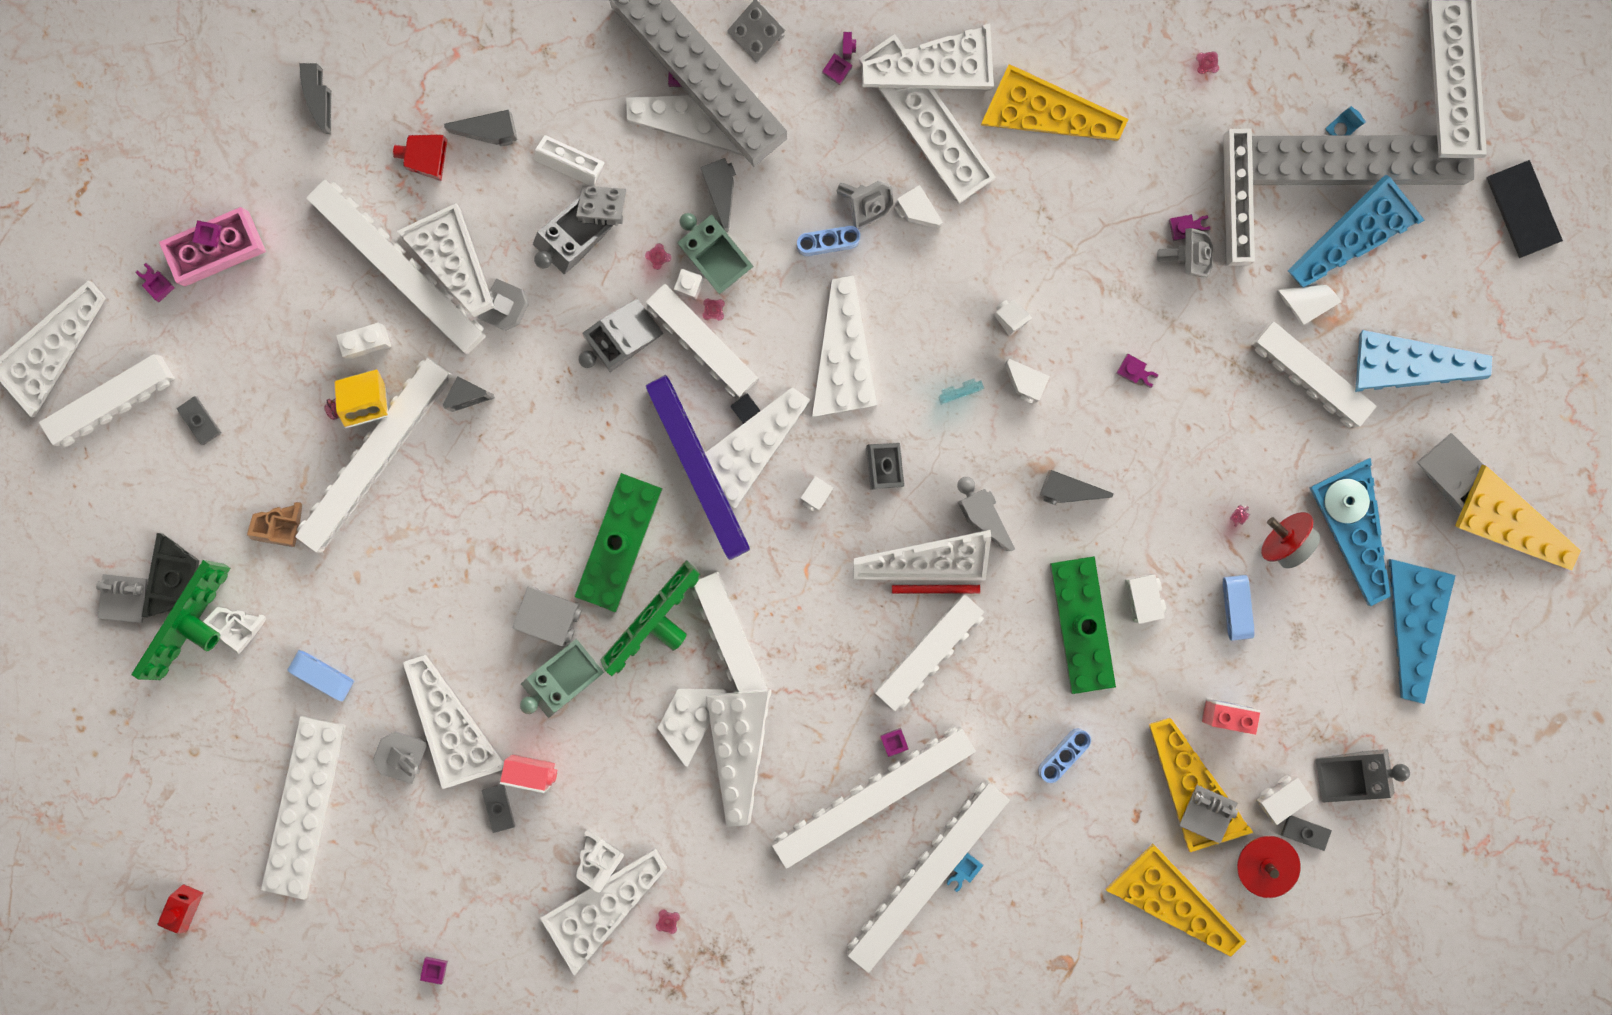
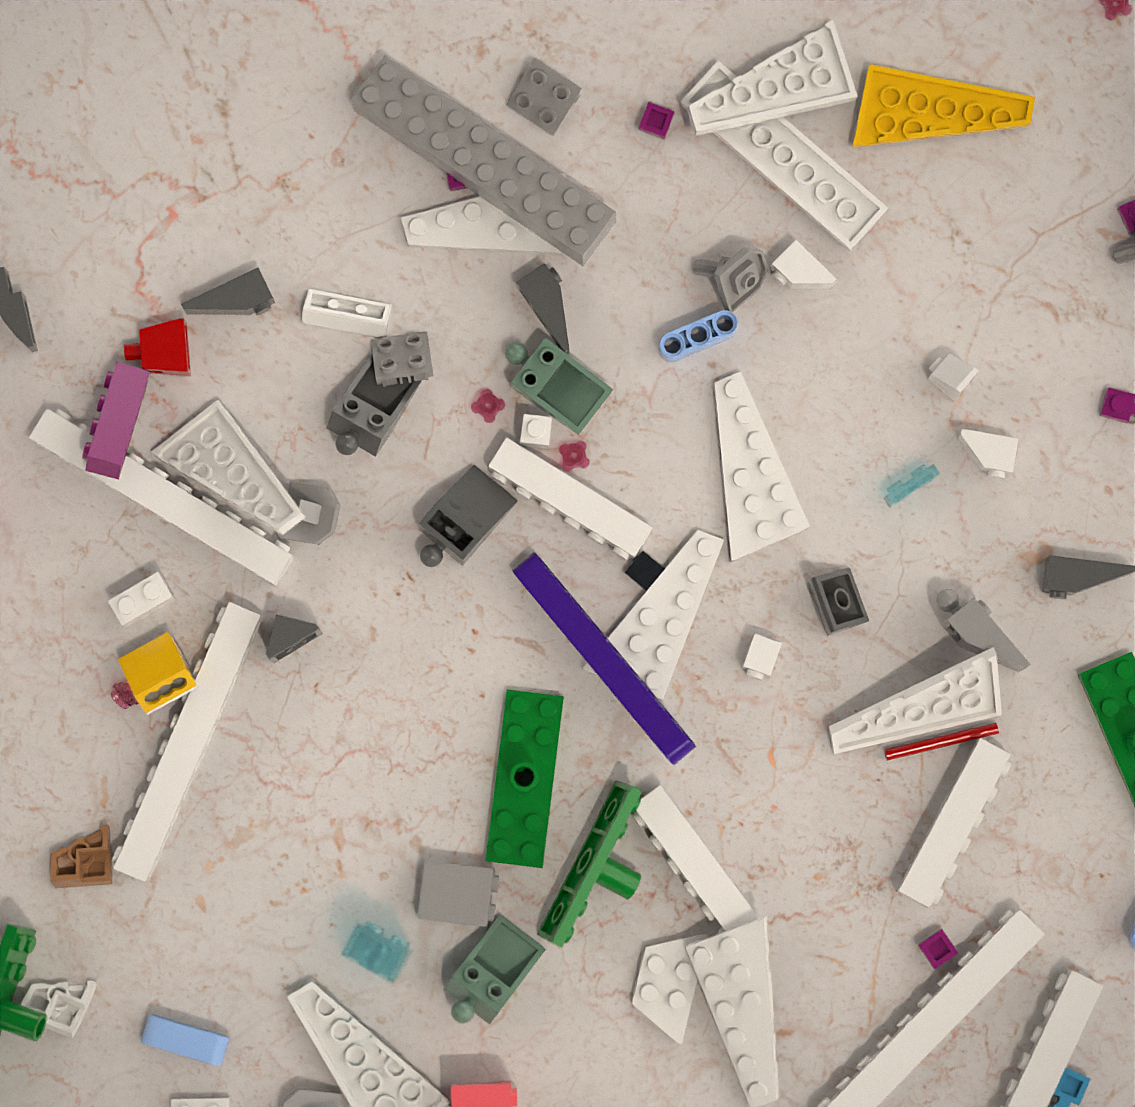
camera: 15 degrees left, 5 degrees down
(373, 200) = (117, 420): none -> magenta brick
(475, 646) = (378, 952): none -> clear light blue brick
(849, 45) = (664, 88): magenta plate -> none

